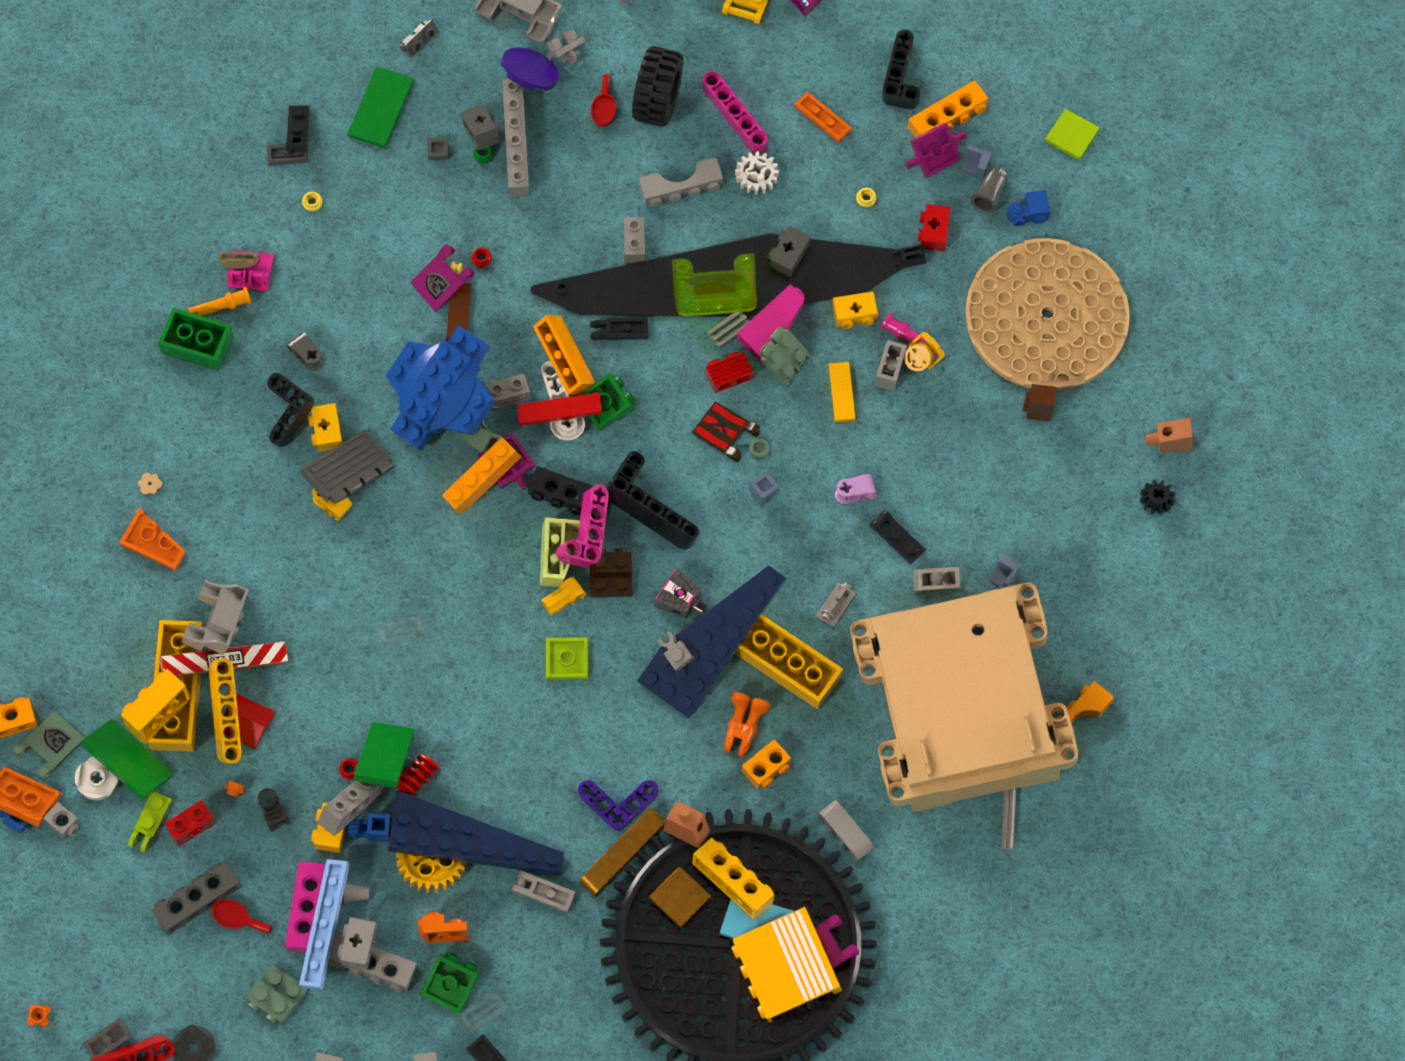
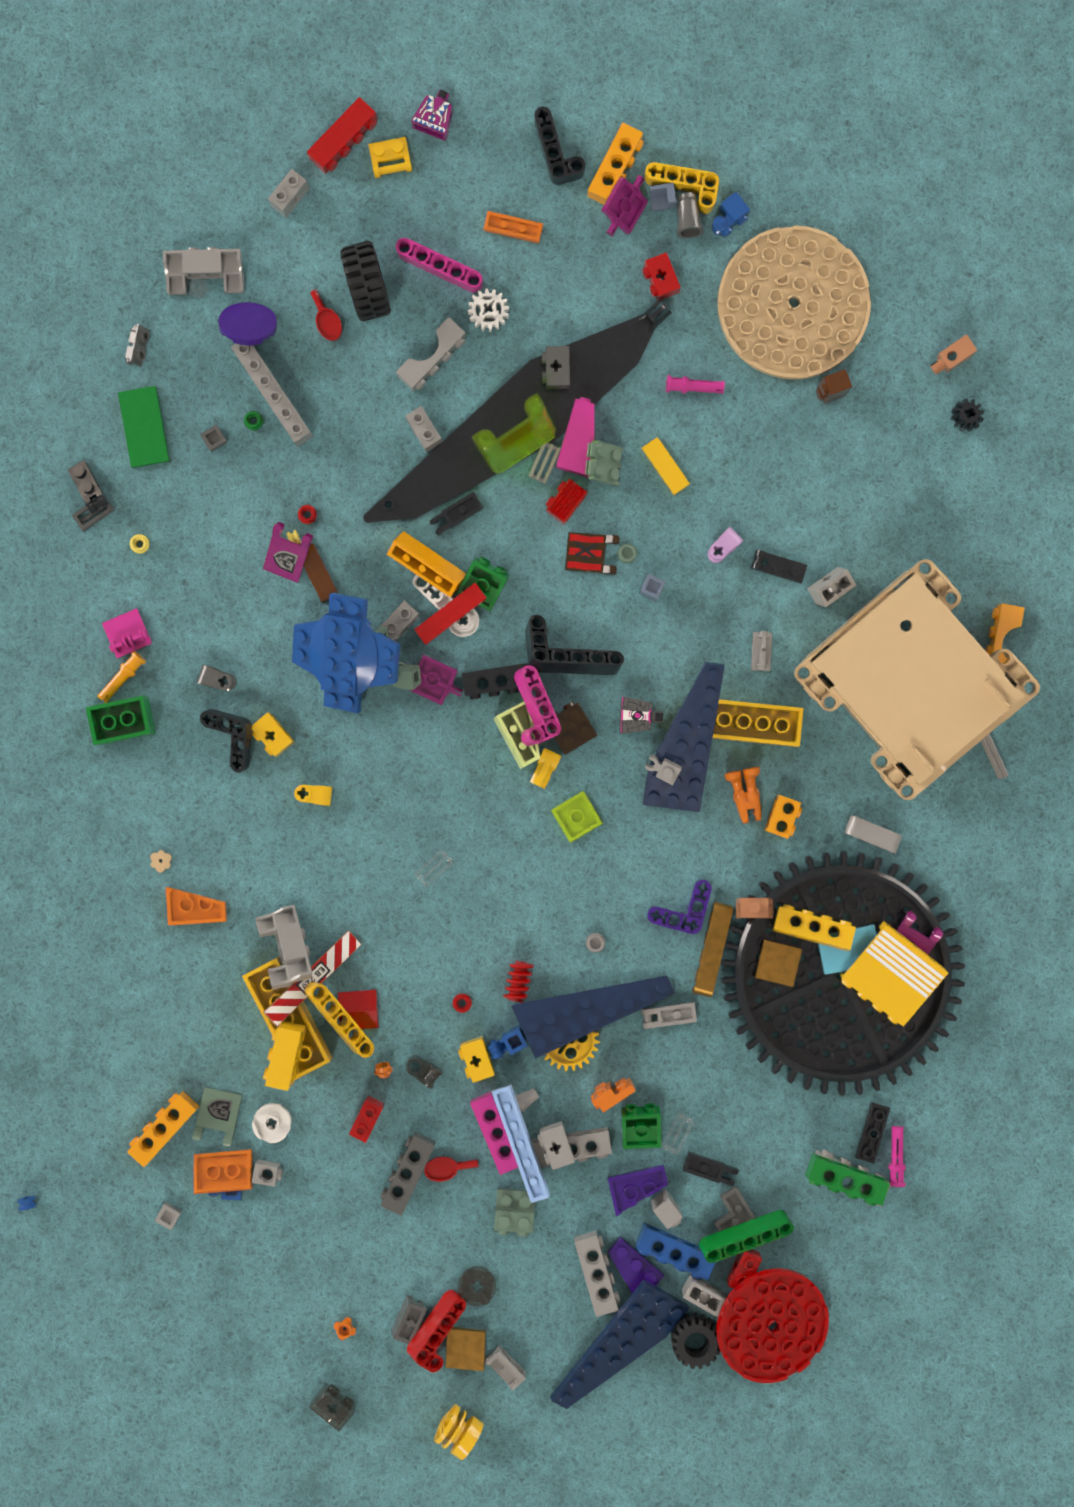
camera: 25 degrees left, 20 degrees up
(127, 759) = (300, 1102): green tile -> none
(150, 820) = (333, 1130): lime hinge -> none
(238, 259) = (112, 631): dark tan tile -> none
(347, 467) = (309, 760): dark grey hinge -> none
(349, 805) = (484, 1032): light grey brick -> none
(384, 755) = (485, 983): green tile -> none
(406, 1038) = (634, 1186): none -> dark purple wing
(481, 127) = (238, 399): dark grey brick -> none
(481, 476) = (422, 707): light orange brick -> none
(513, 784) = (595, 942): none -> light grey plate
(571, 40) = (260, 291): light grey hips -> none
(863, 304) = (642, 378): yellow brick -> none
(866, 192) = (589, 287): light yellow plate -> none
(890, 365) = (694, 422): light grey brick -> none
(922, 353) = (713, 397): yellow piece -> none
(985, 140) = (681, 184): none -> yellow beam
(1005, 572) = (881, 549): sand blue panel -> none
(1072, 134) = (726, 125): lime tile -> none

